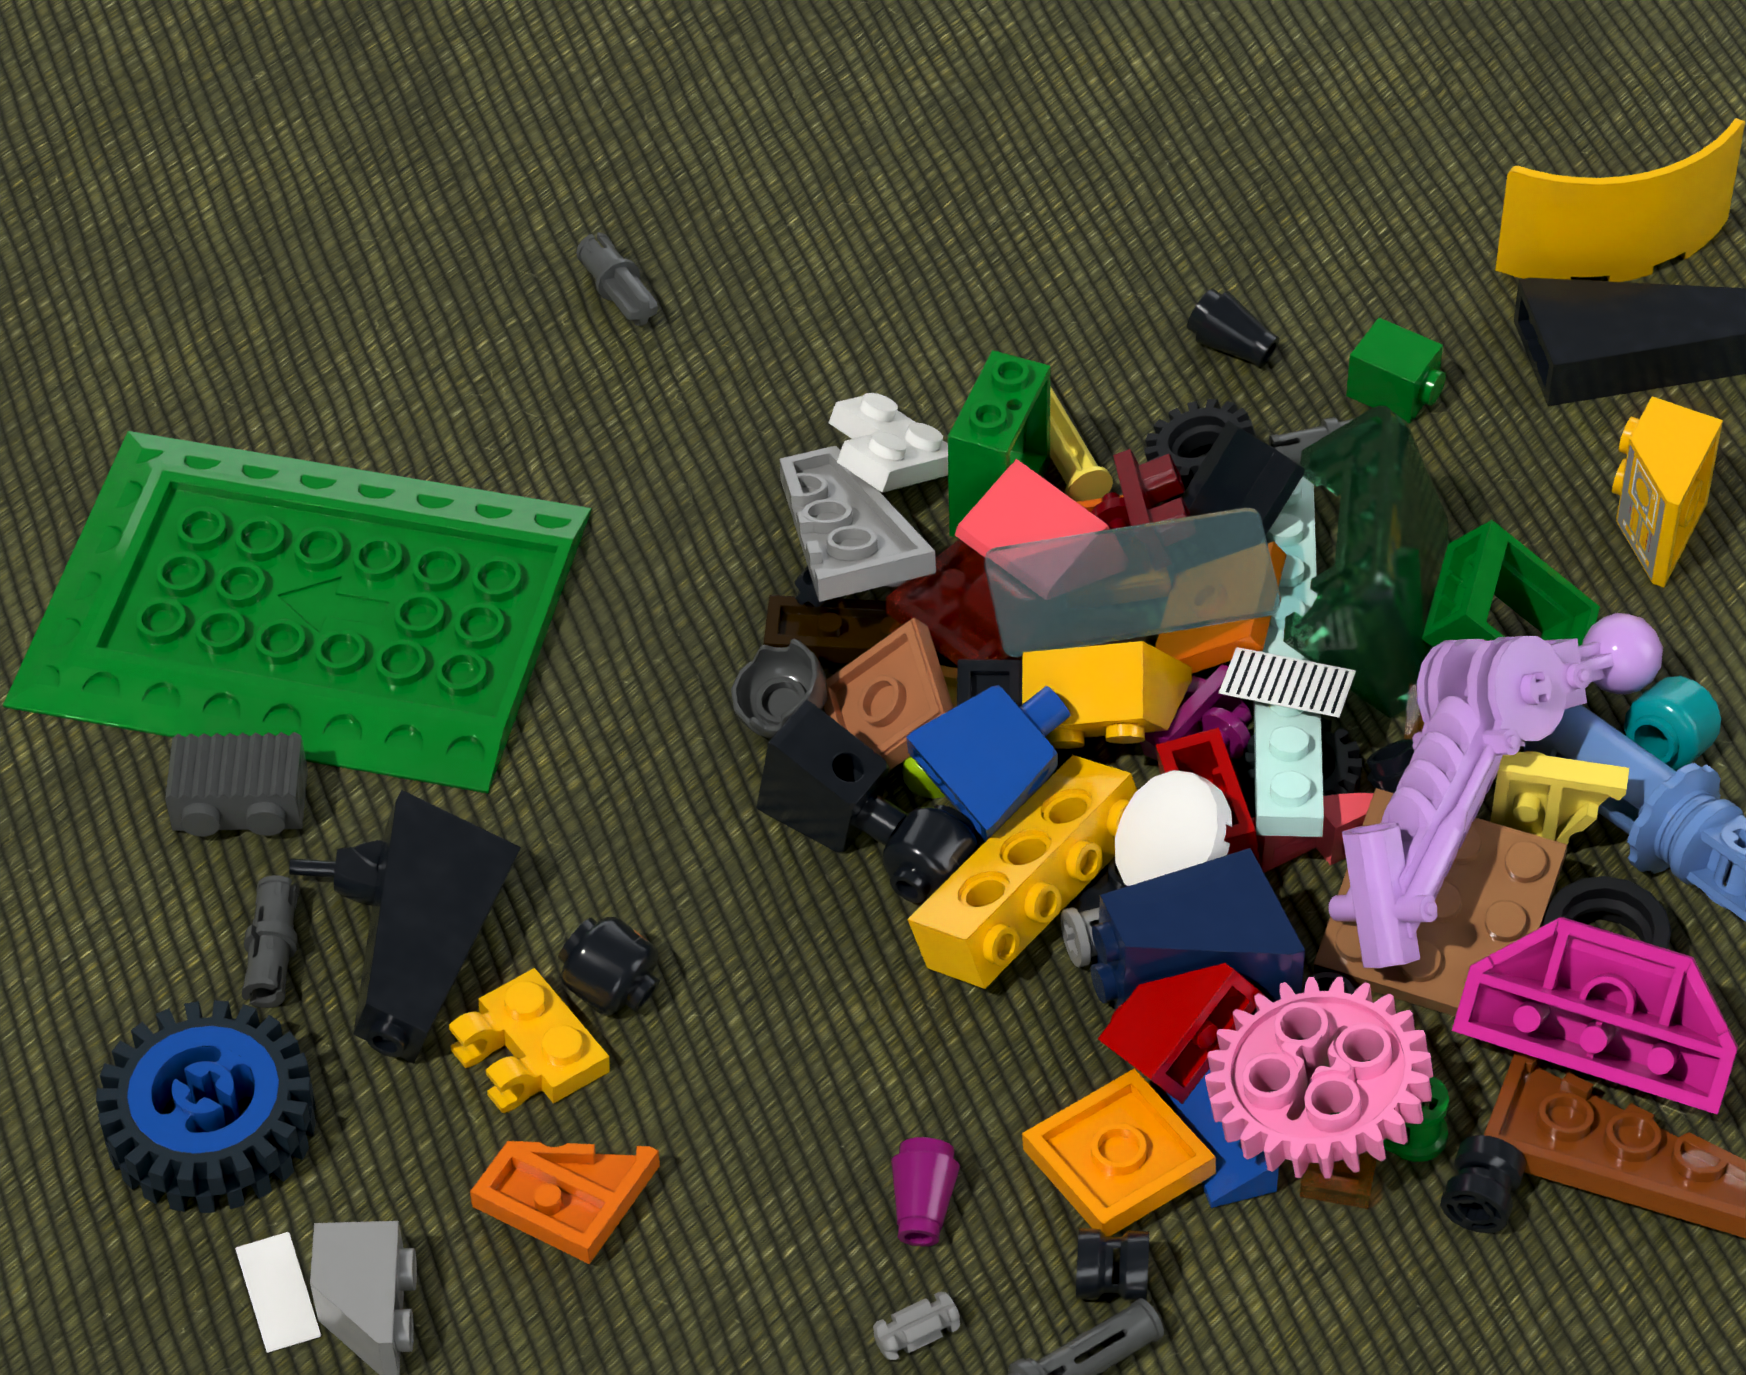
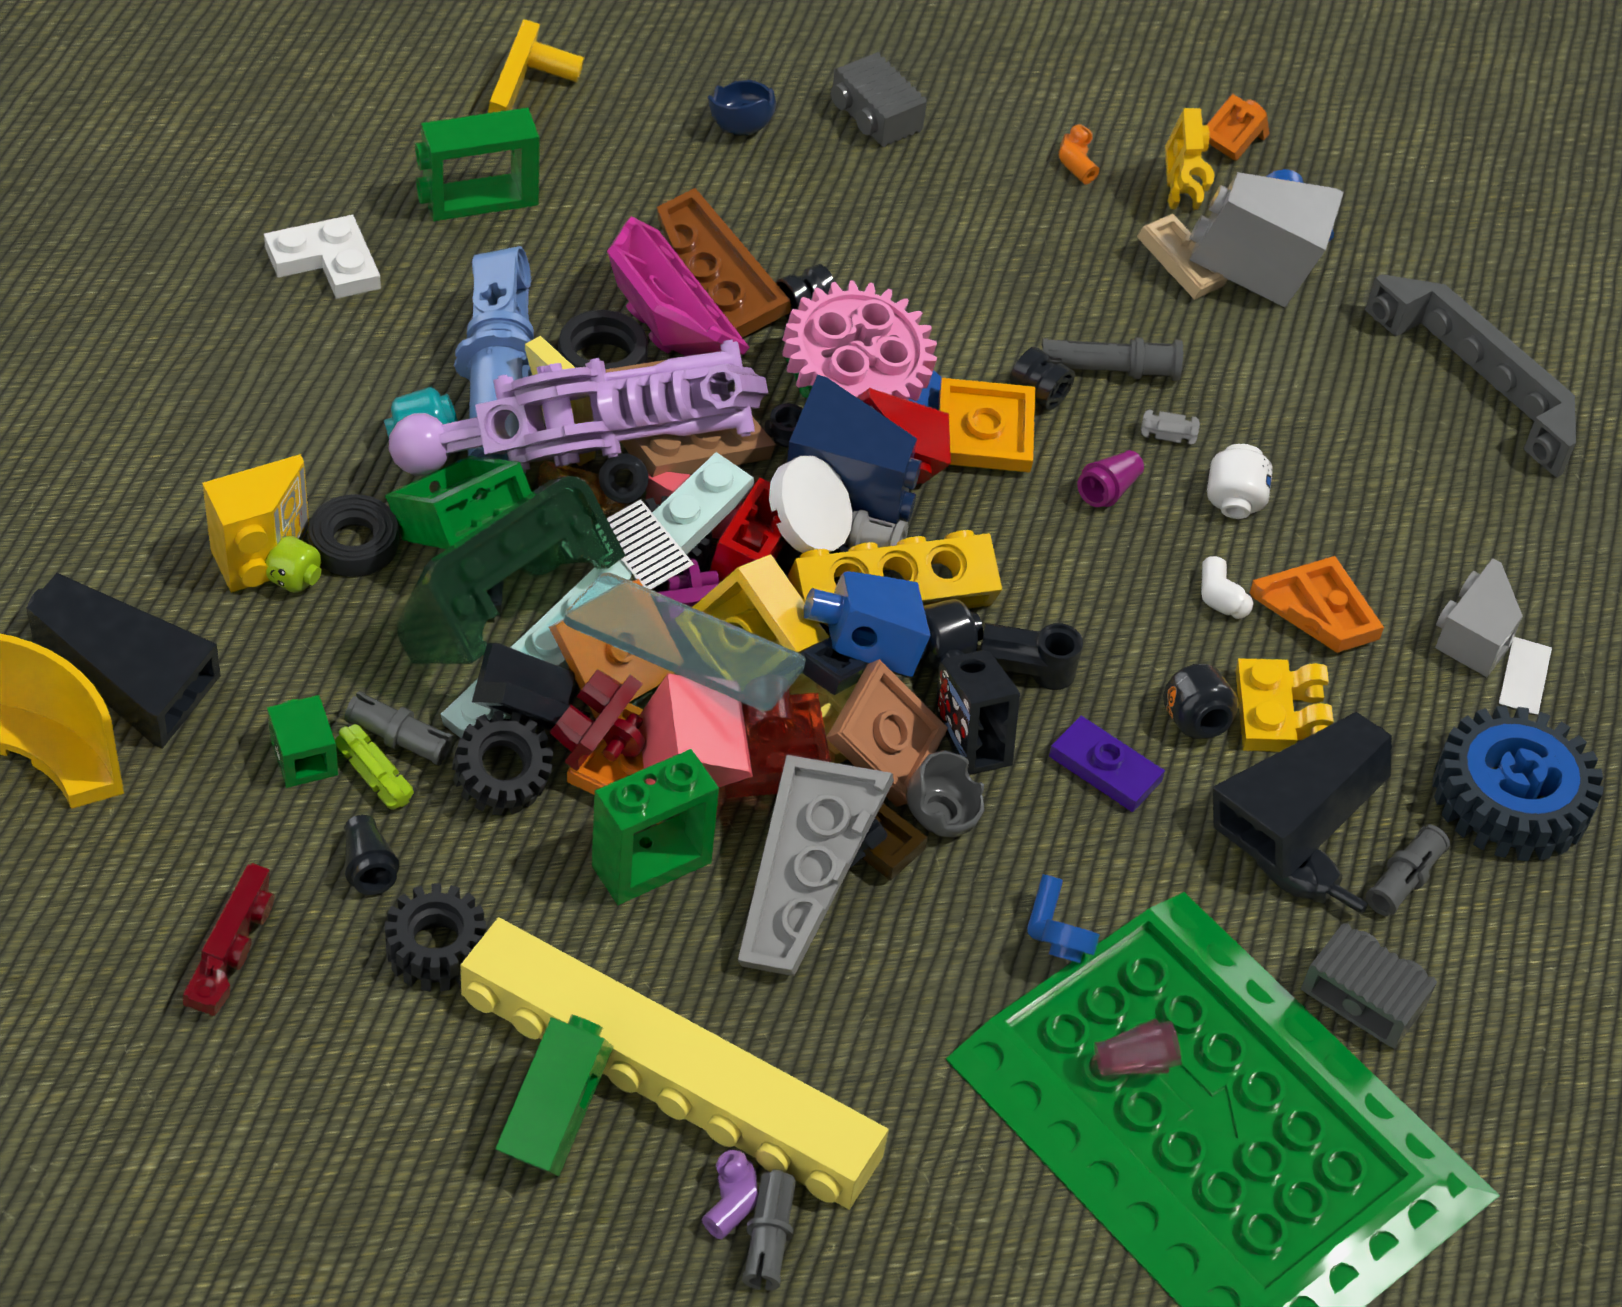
camera: 150 degrees left, 0 degrees up
(406, 571) = (1141, 1050): none -> clear pink cone
(565, 634) = (1065, 940): none -> blue plate
(660, 857) = (1106, 763): none -> dark purple plate
(672, 298) = (737, 1191): none -> medium lavender arm
(693, 1133) = (1222, 593): none -> white arm
(771, 1281) = (1239, 481): none -> white head
(810, 908) = (1045, 654): none -> black piece
(811, 334) = (679, 1064): none -> light yellow brick
(867, 227) = (556, 1094): none -> green brick
(887, 445) = (694, 915): white plate -> none
(1072, 458) = (567, 874): light yellow axle -> none
(1107, 283) = (425, 912): none -> black tyre
(1257, 196) = (229, 941): none -> dark red hinge
(1311, 401) = (374, 767): none -> lime axle
(1601, 508) = (293, 564): none -> lime piece
(1612, 558) = (354, 510): none -> black tyre

